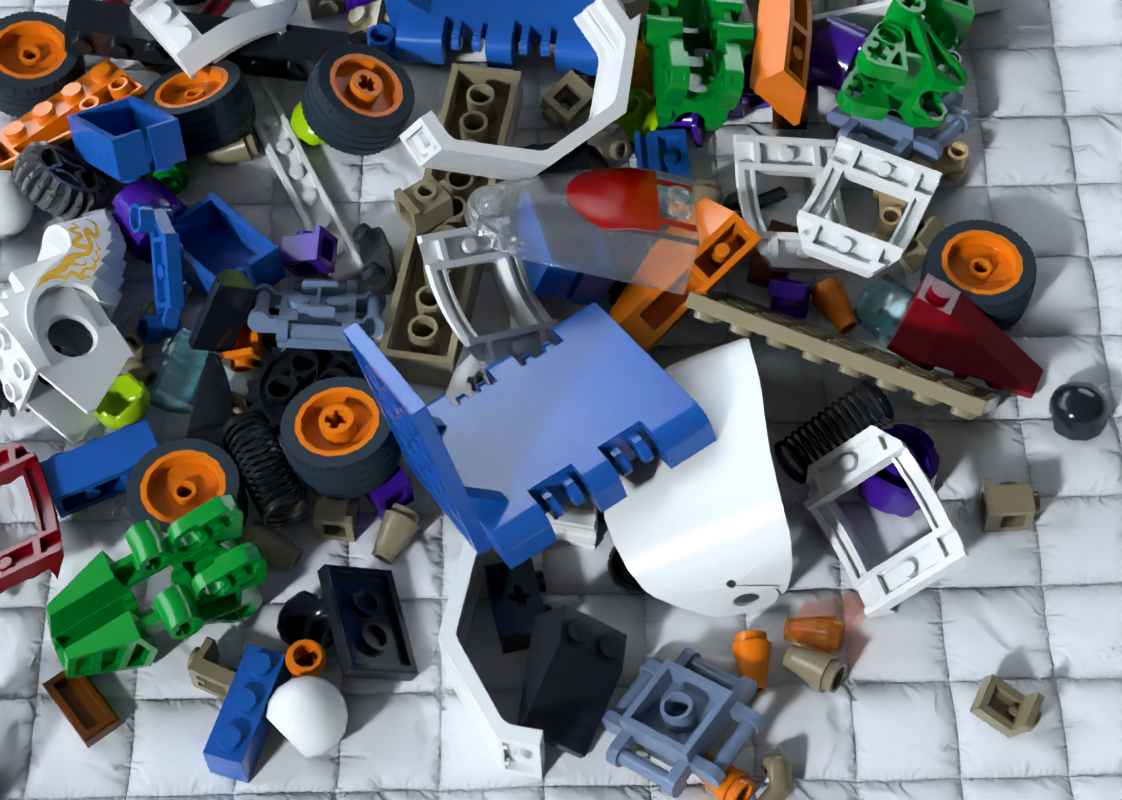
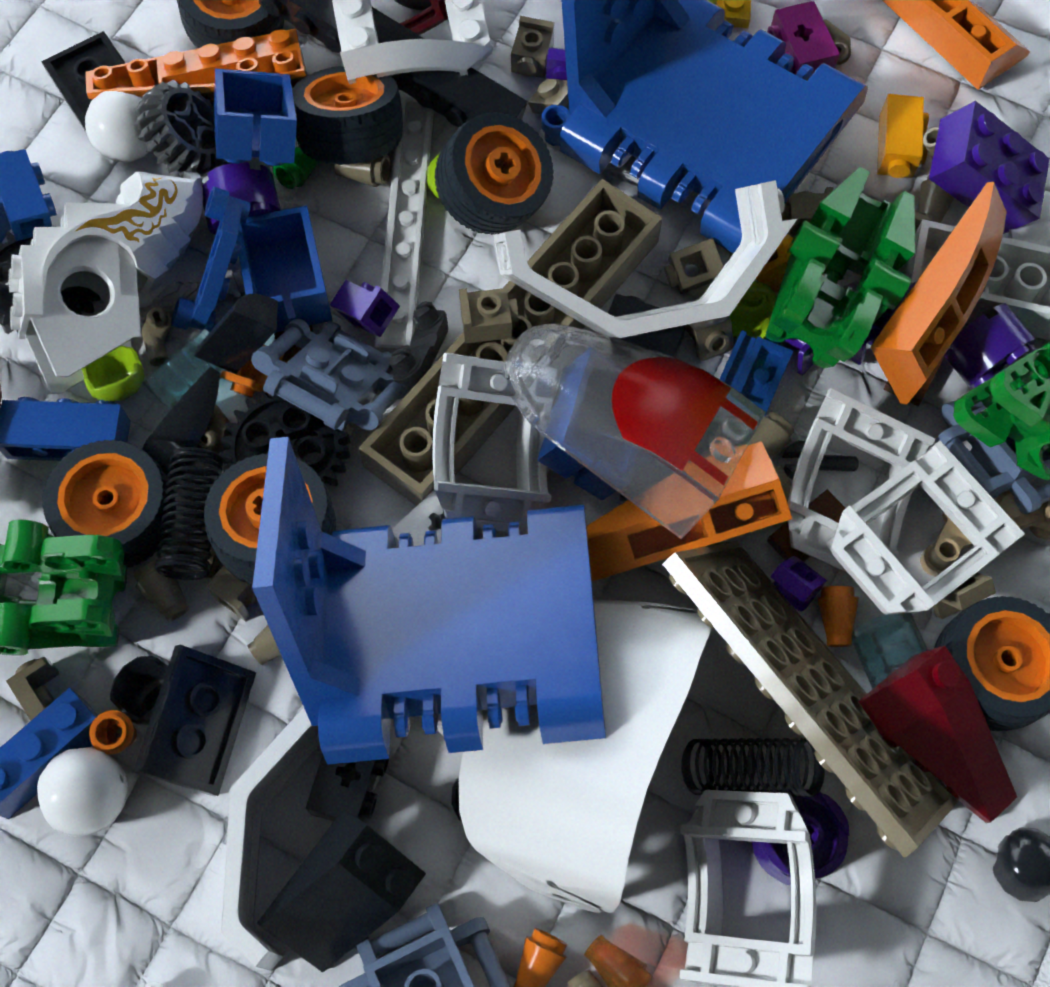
camera: 25 degrees right, 10 degrees up
(1007, 506) = (894, 936): dark tan brick -> none

